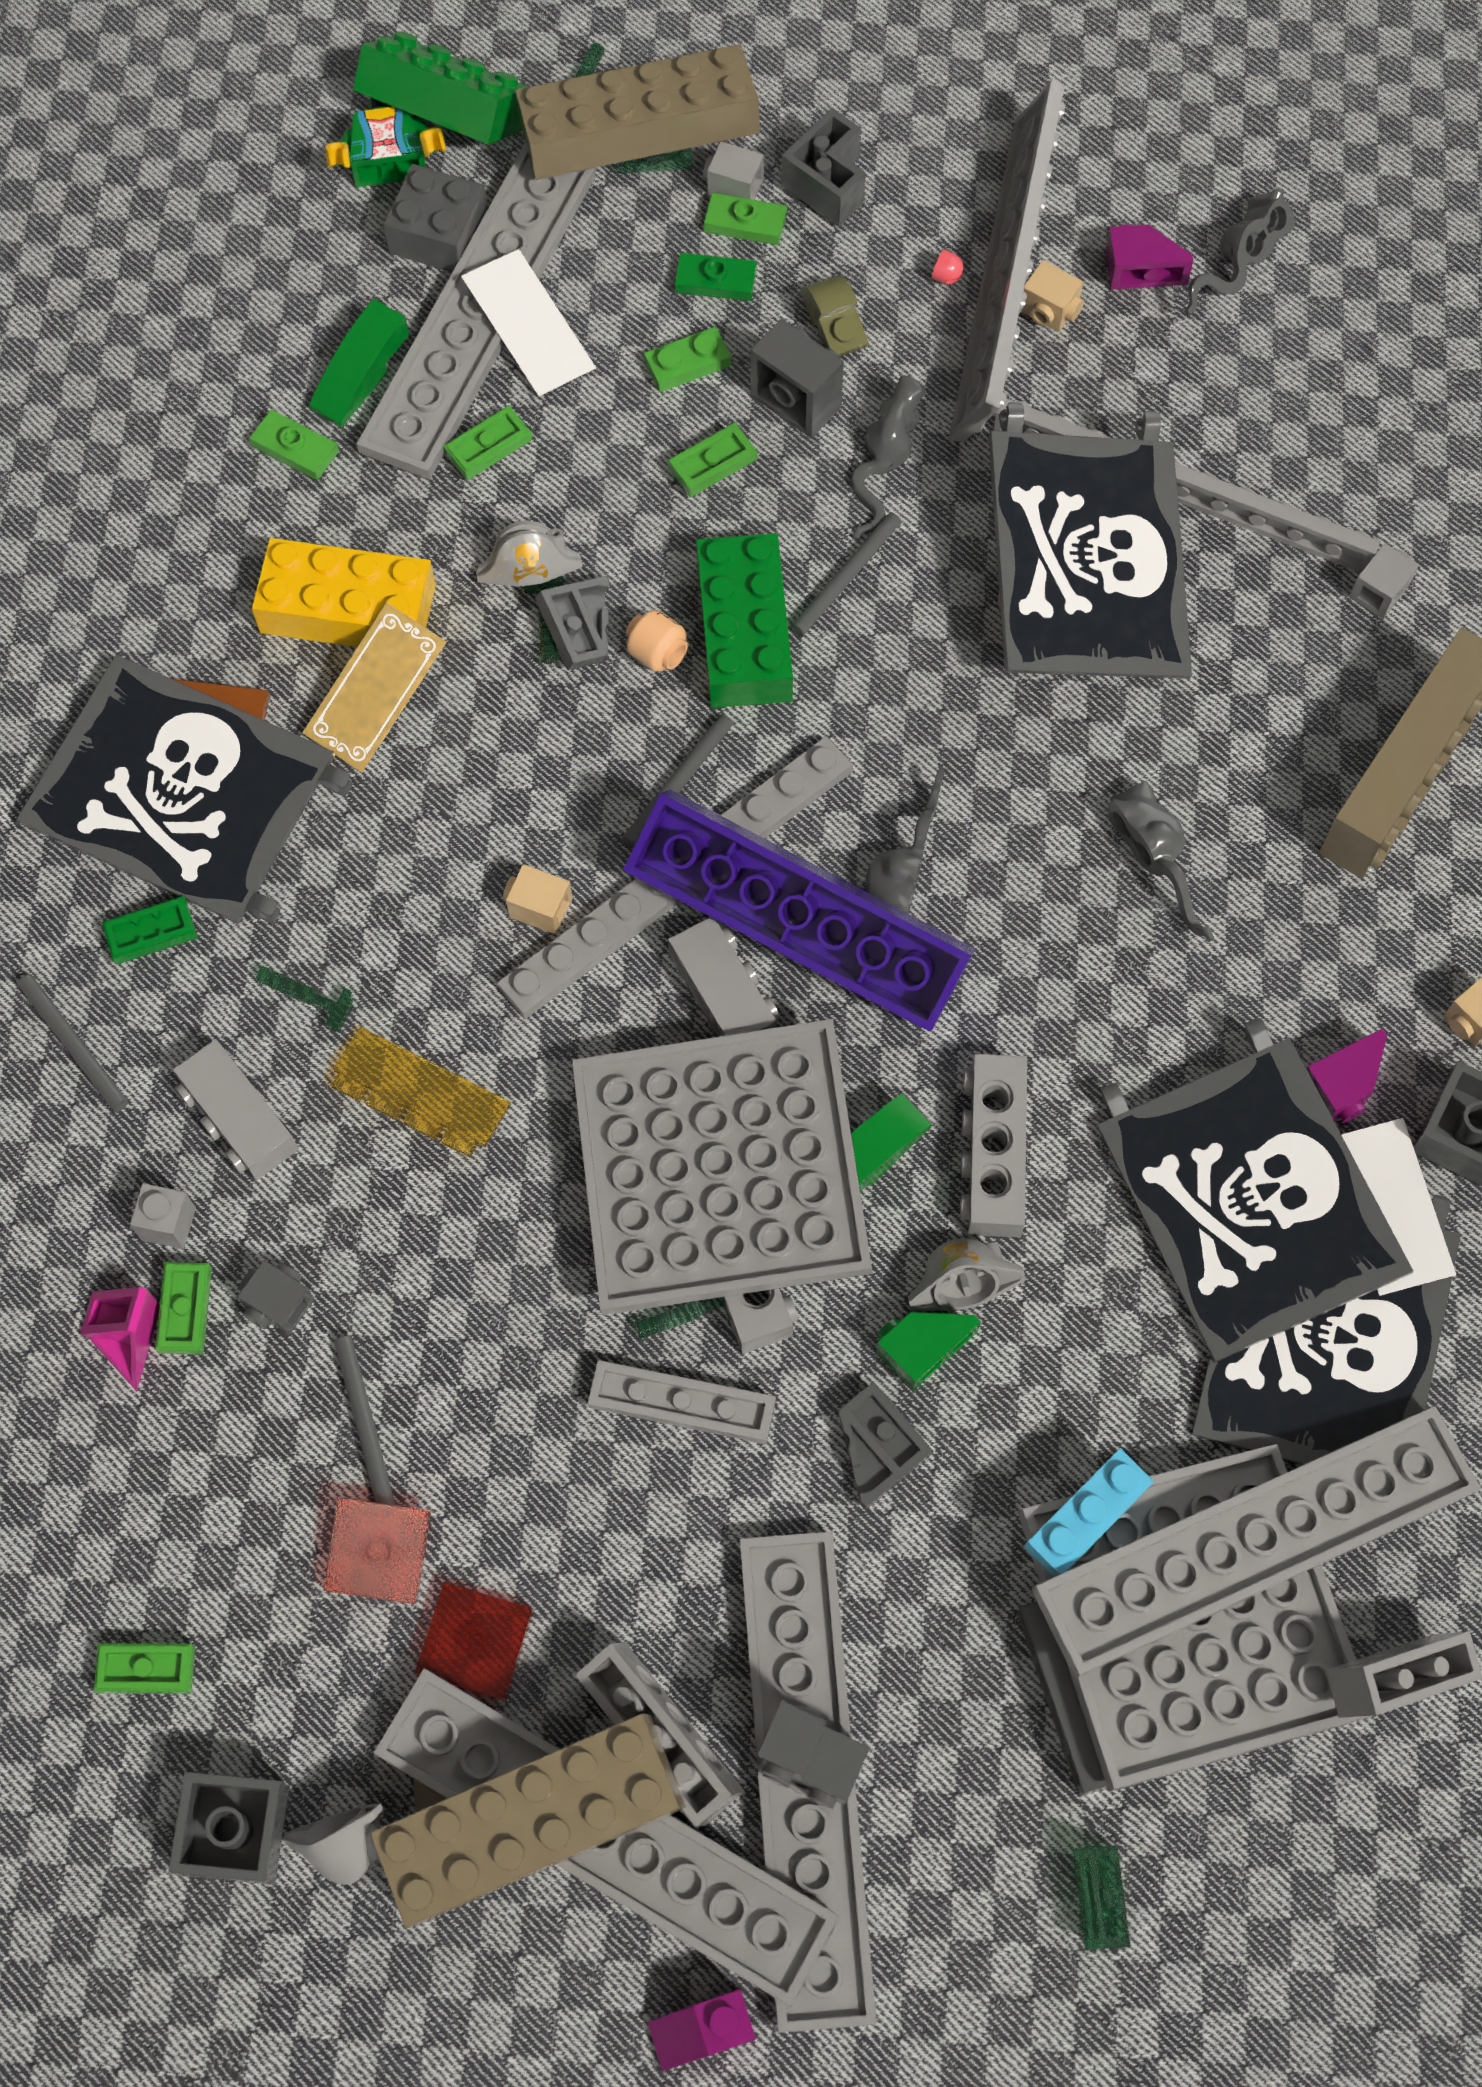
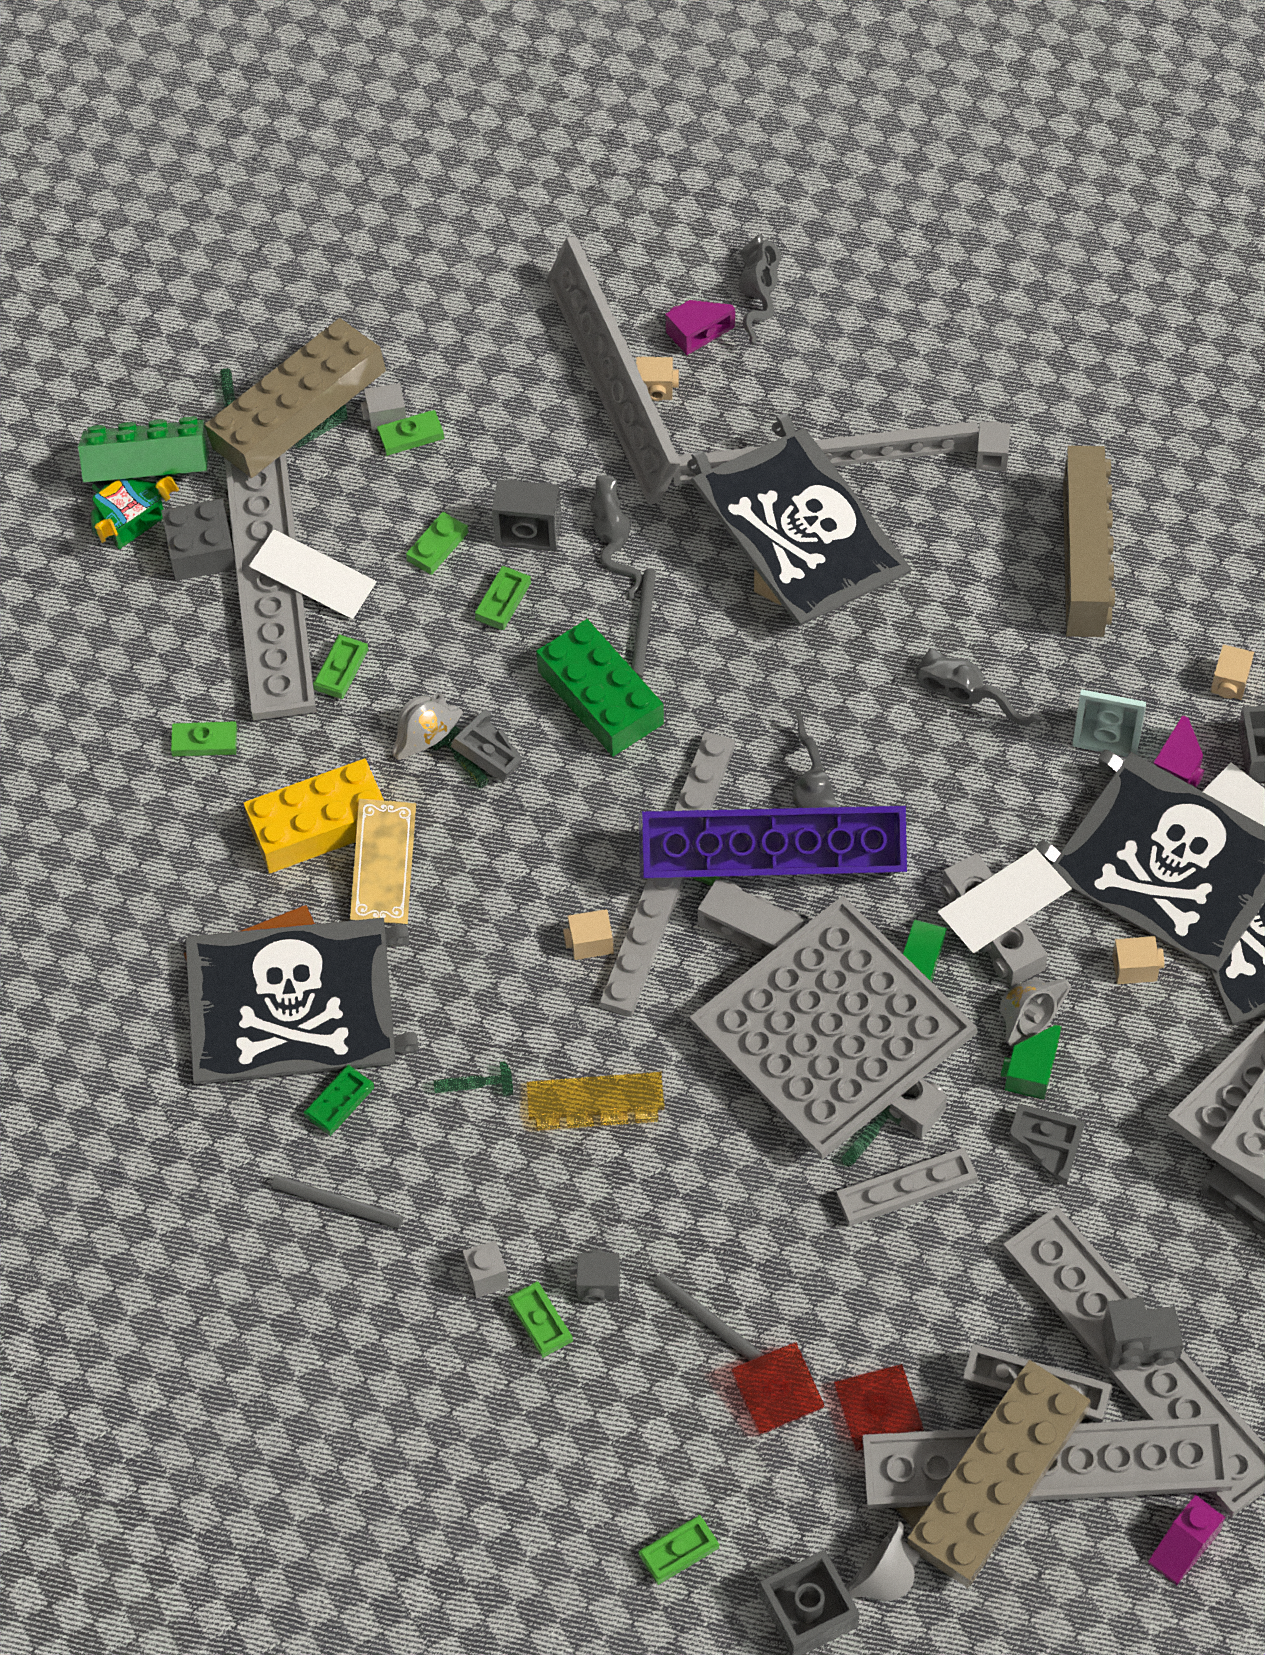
camera: 30 degrees left, 10 degrees down
(122, 1328) = (506, 1355): dark pink slope -> none
(234, 1111) = (484, 1178): light grey brick -> none
(359, 363) = (213, 661): green slope -> none
(656, 641) = (551, 731): light nougat head -> none
(683, 772) = (625, 814): dark grey bar -> none
(715, 276) = (417, 480): green plate -> none
(822, 167) = (445, 374): dark grey brick -> none
(833, 310) = (514, 458): olive brick -> none
(947, 268) = (572, 395): coral hinge -> none
(1019, 1131) = (1004, 900): none -> white sticker
(1088, 1514) = (1209, 1095): medium azure plate -> none
(1129, 1292) = (1137, 960): none -> tan brick
(1287, 989) = (1108, 723): none -> light aqua slope

